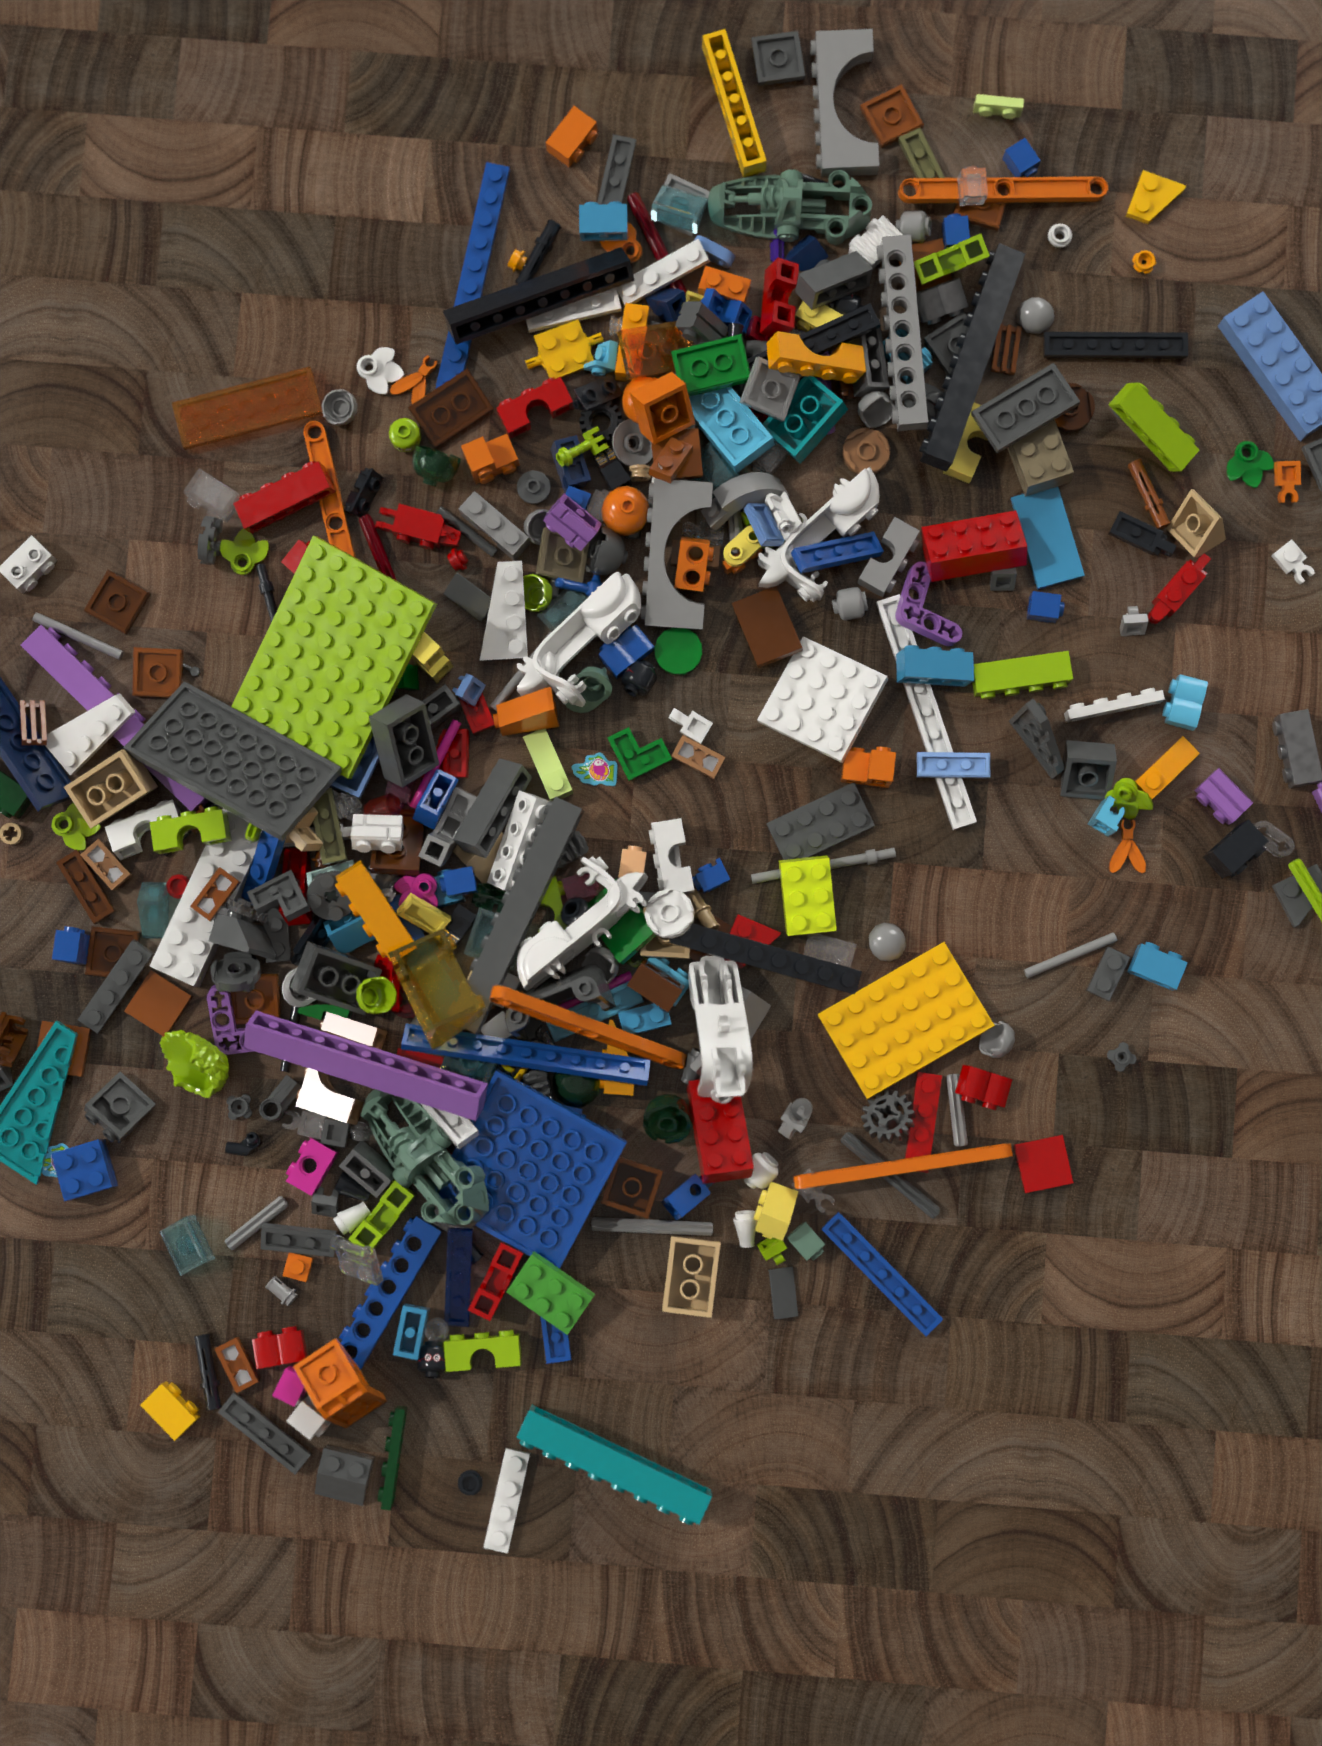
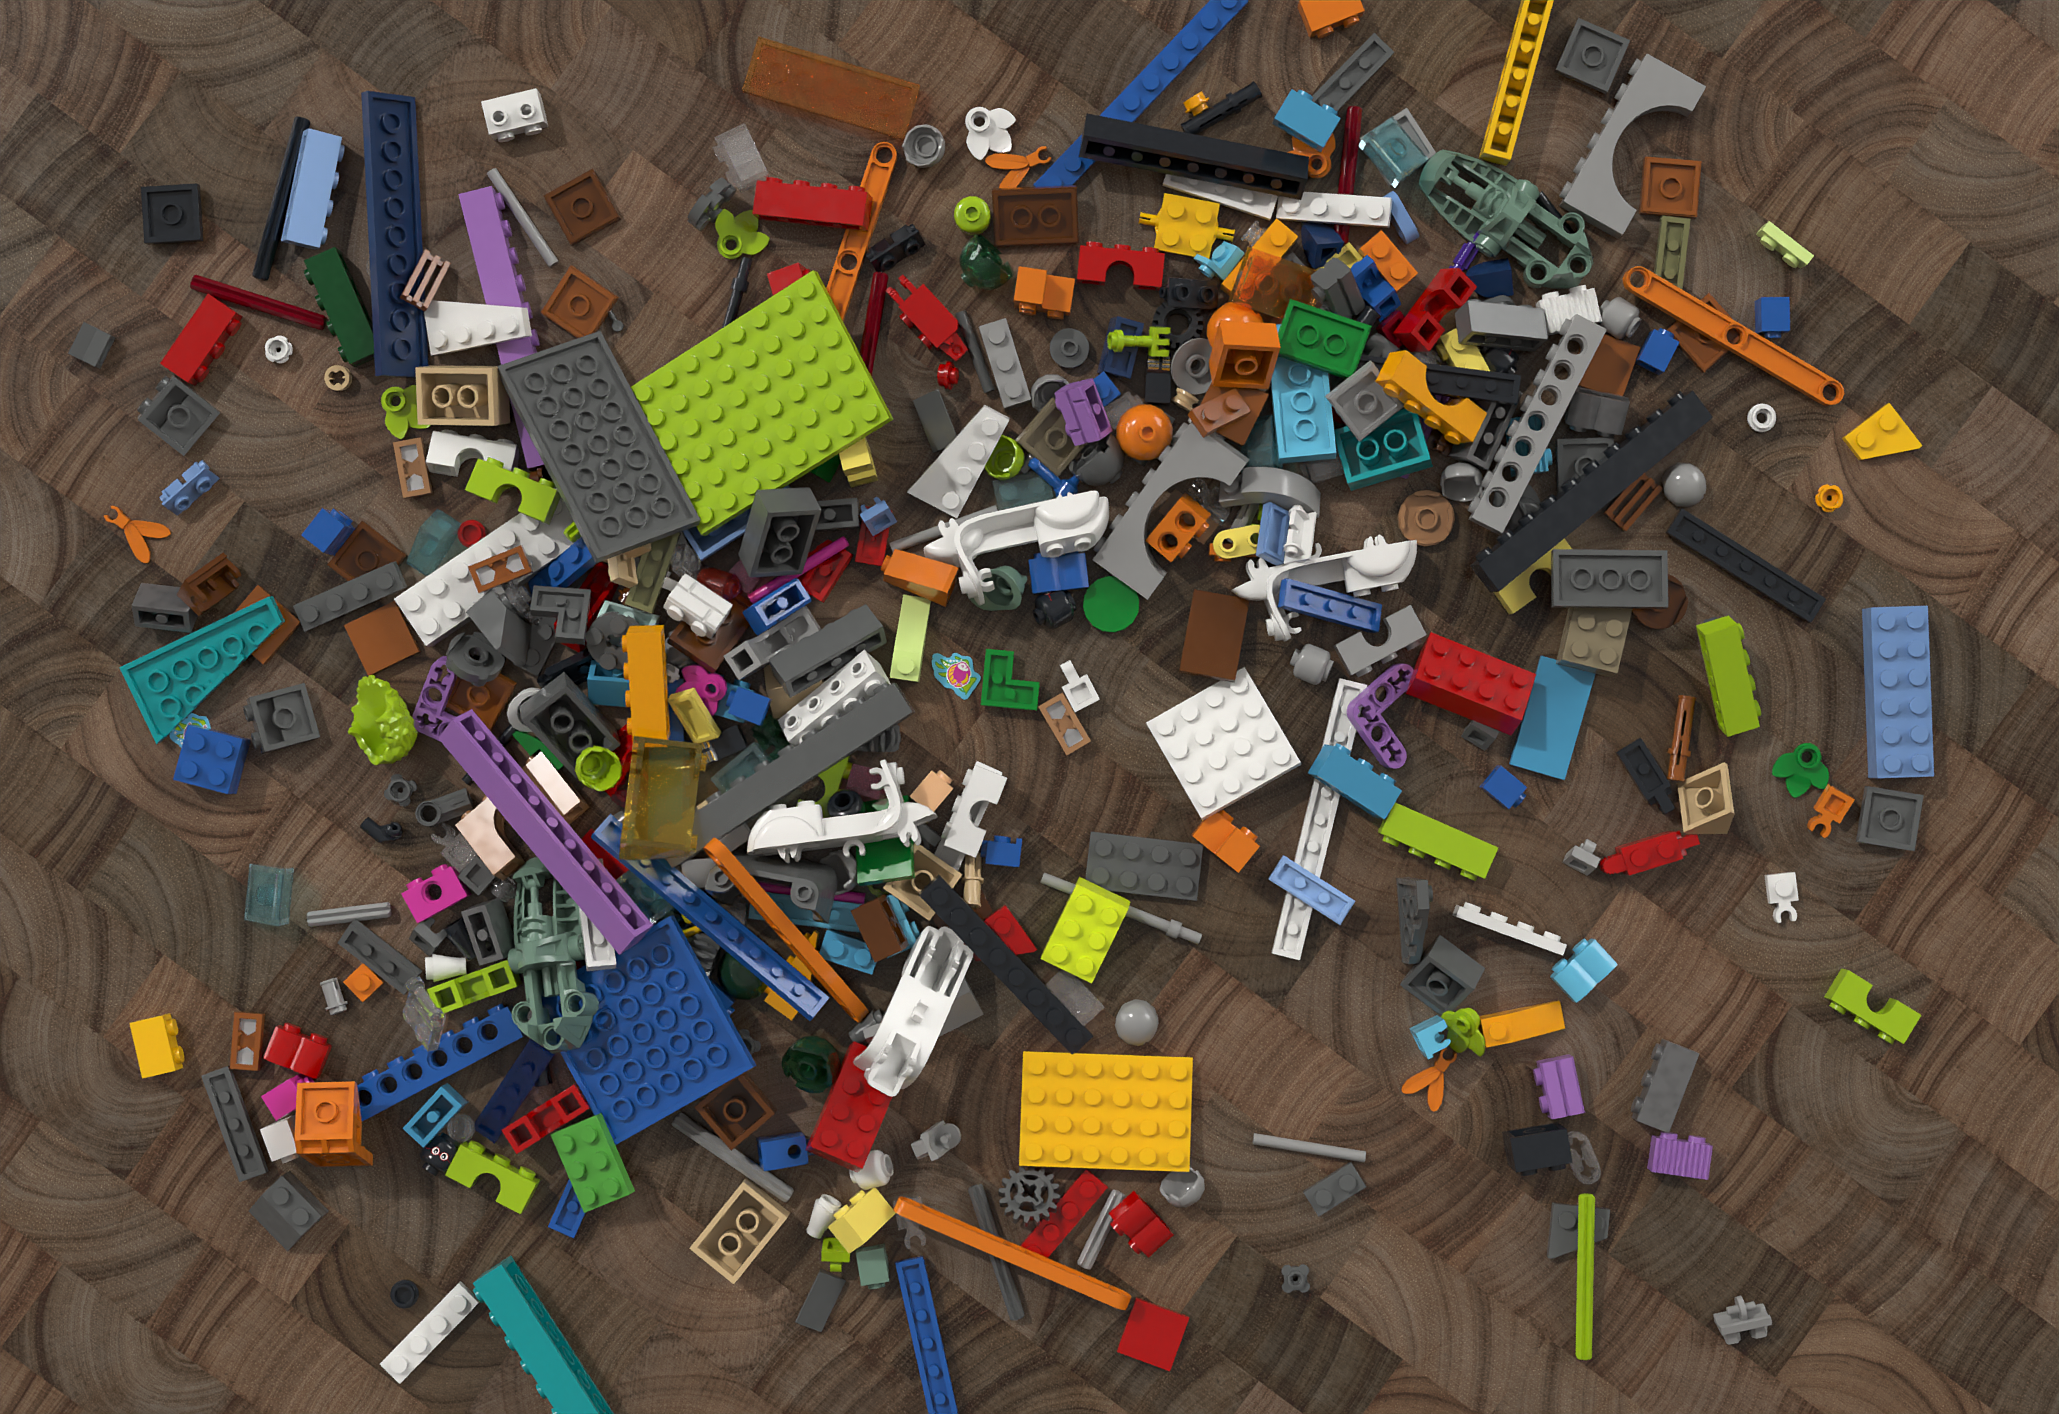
camera: 30 degrees right, 5 degrees up
(86, 887) = (379, 478): reddish brown plate -> none
(203, 1344) = (203, 1060): black pin -> none
(391, 1467) = (335, 1233): dark green plate -> none
(669, 913) = (936, 867): white tile -> none
(951, 259) = (1633, 377): lime arch -> none
(972, 186) = (1702, 315): clear brick -> none
(1157, 966) = (1387, 1213): dark azure brick -> none

